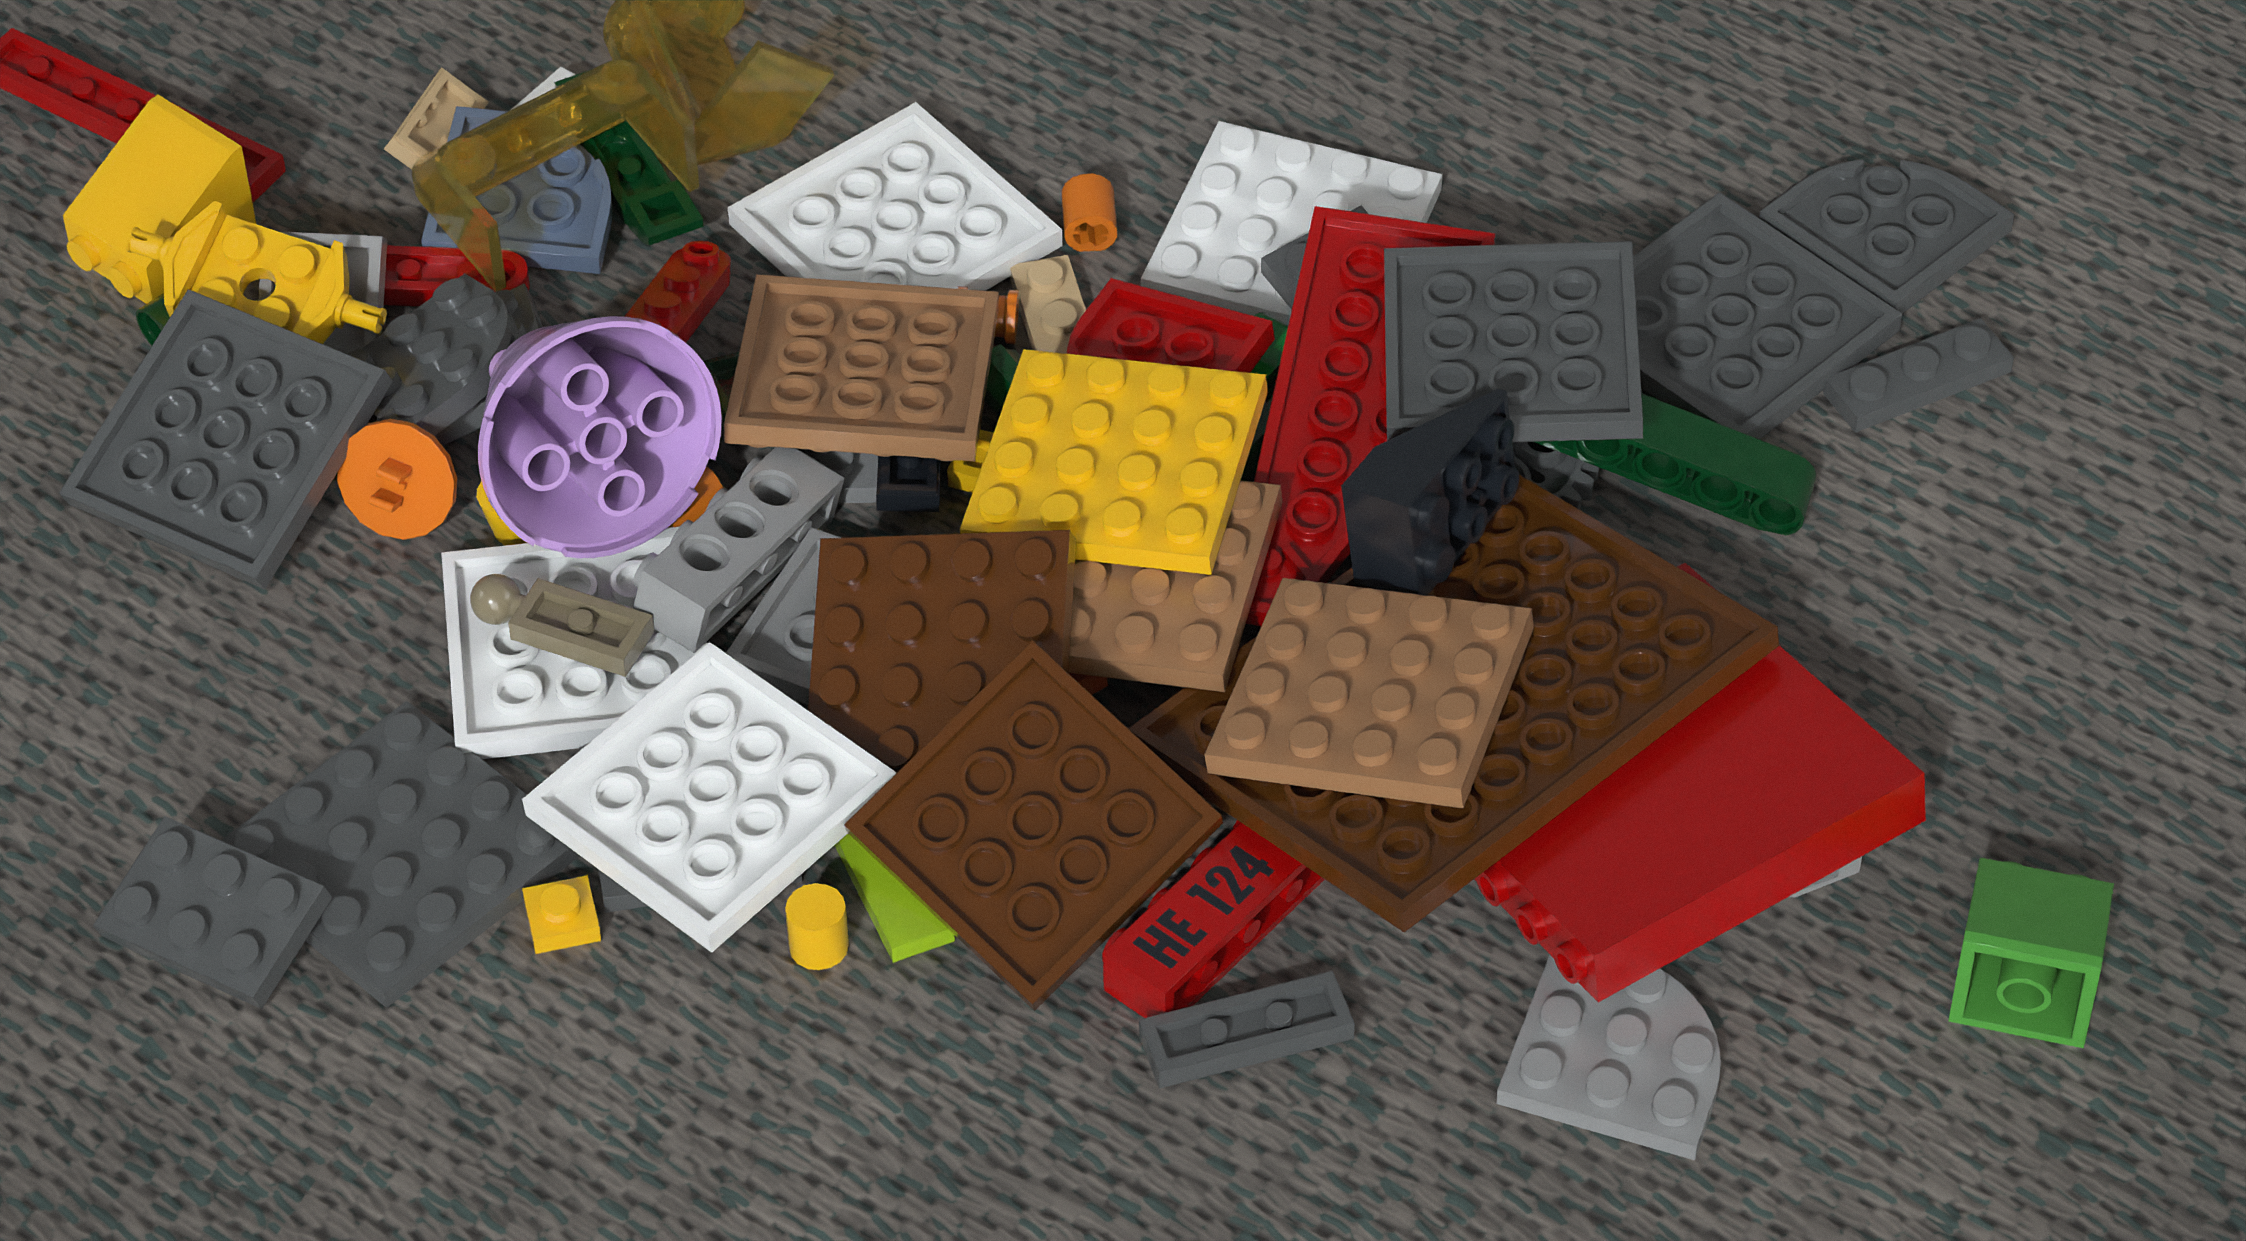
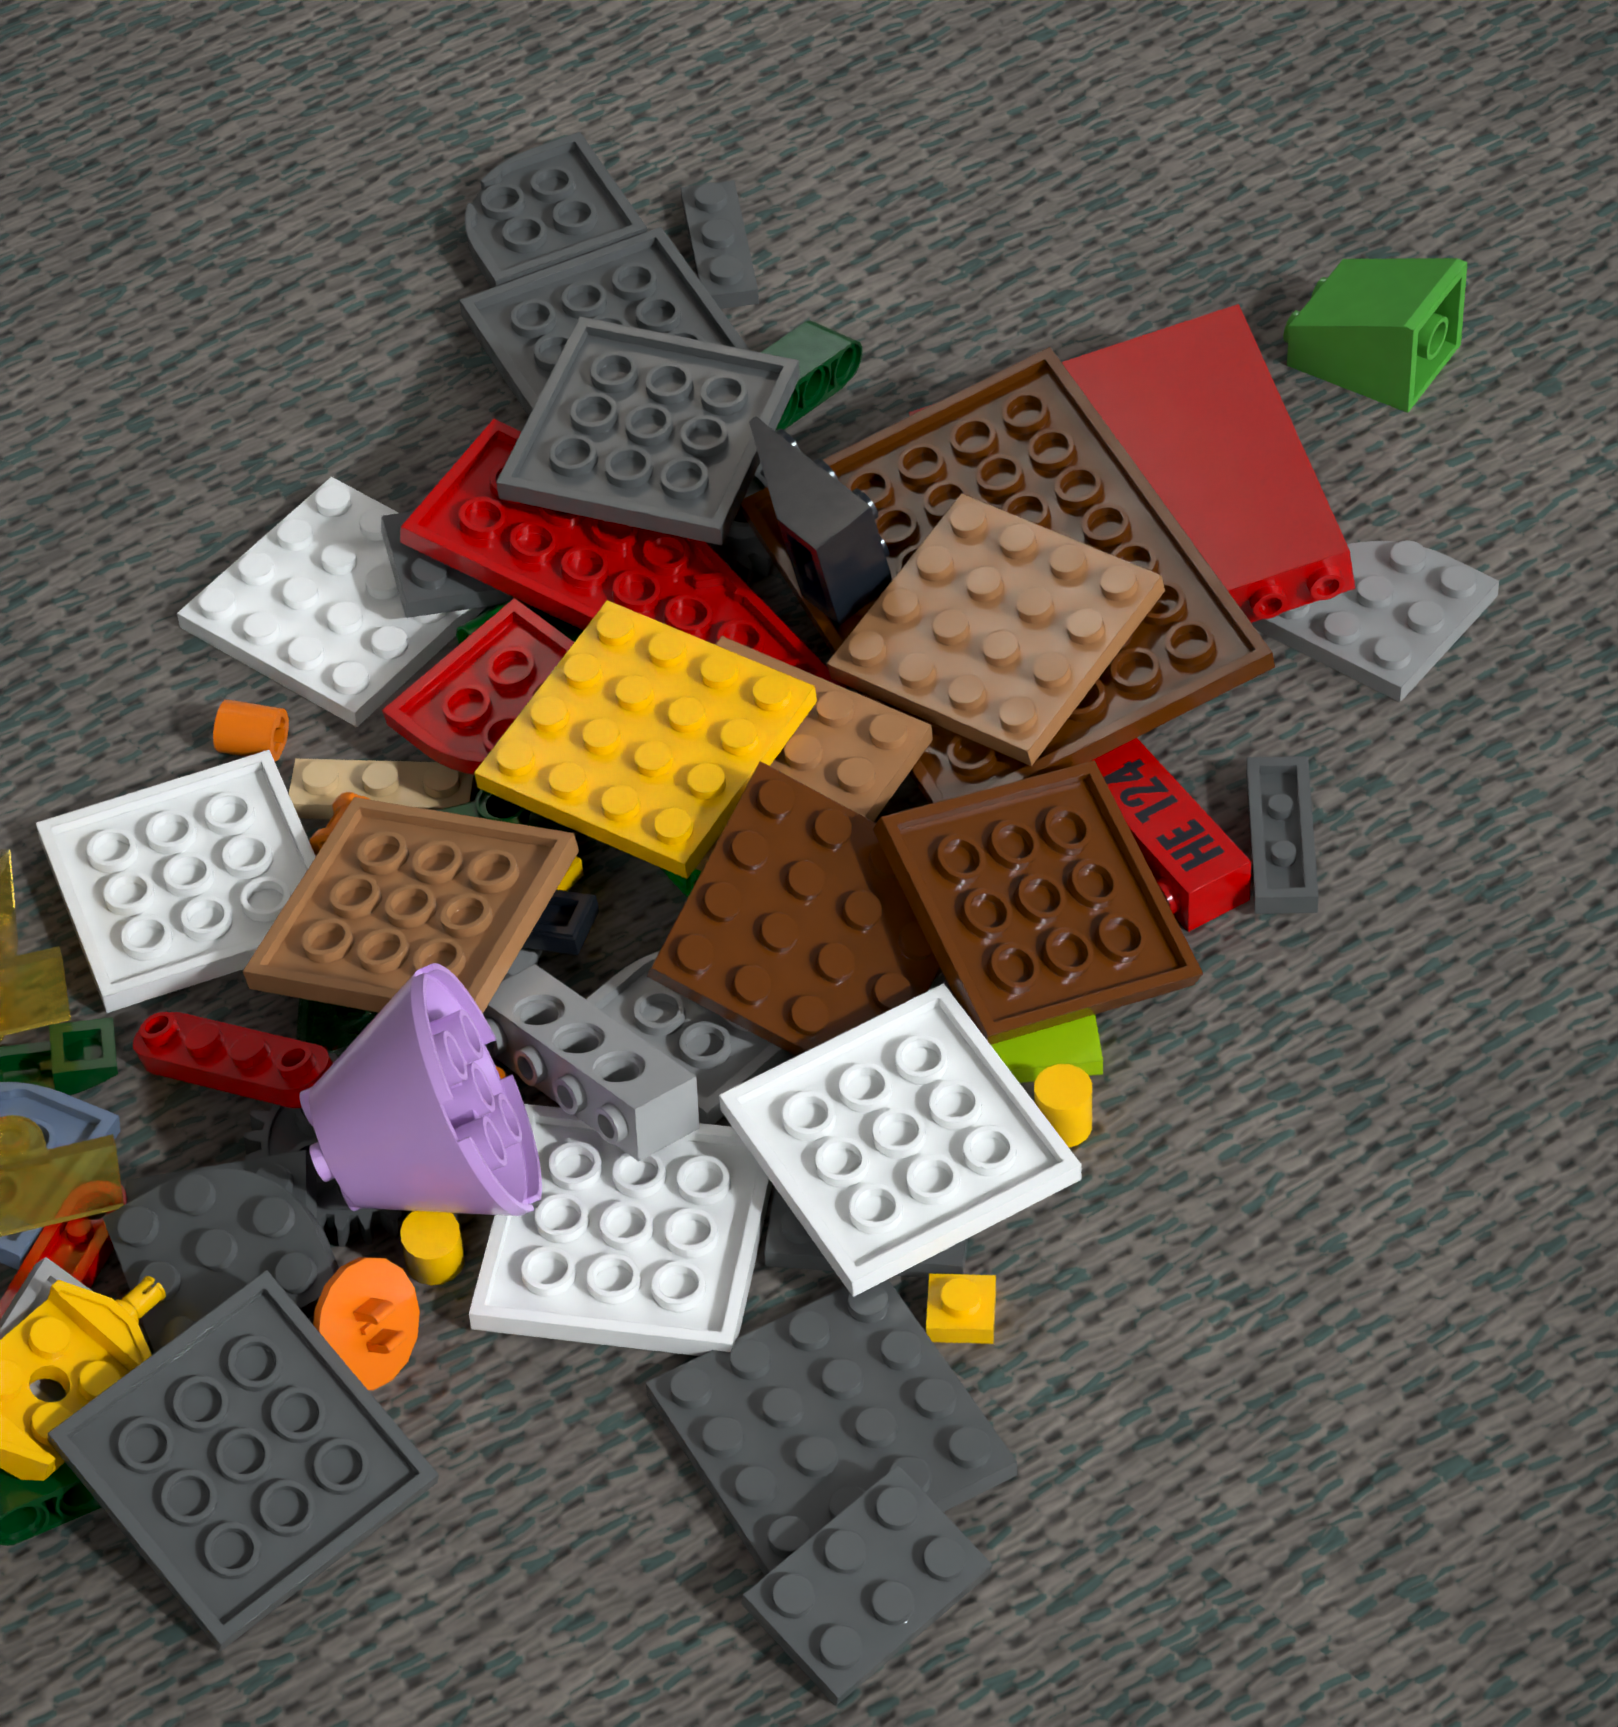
camera: 70 degrees left, 0 degrees up
(565, 621) = (627, 1214): dark tan plate -> none

